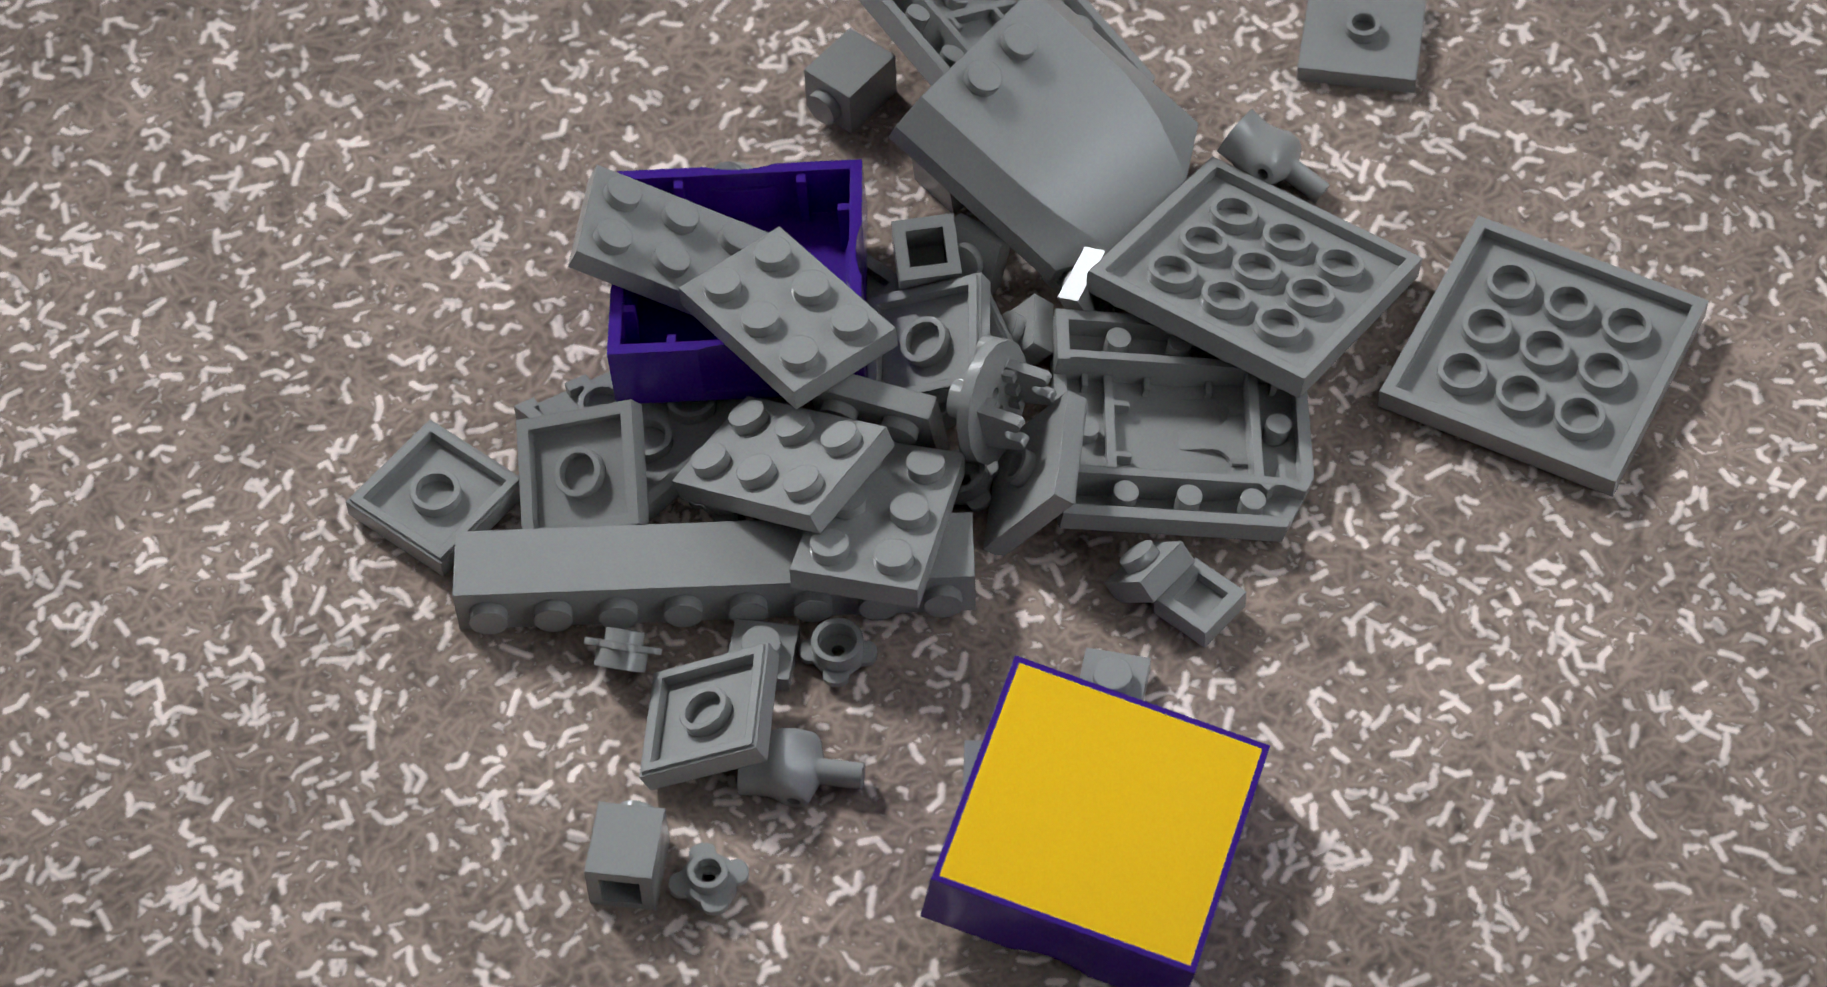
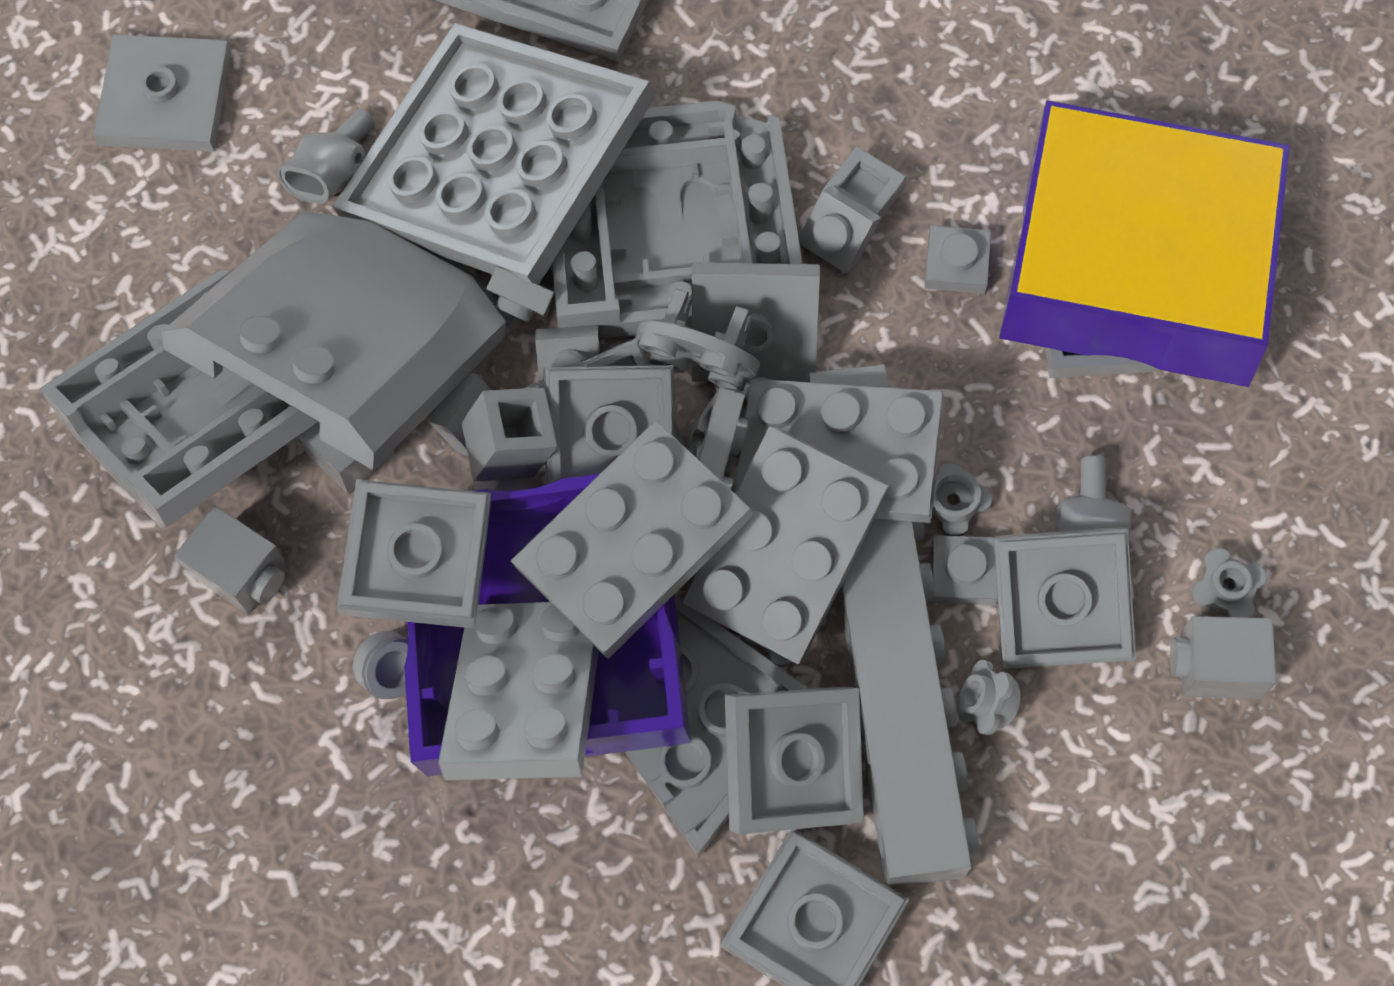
camera: 95 degrees left, 15 degrees up
(799, 163) = (414, 554): none -> light grey plate

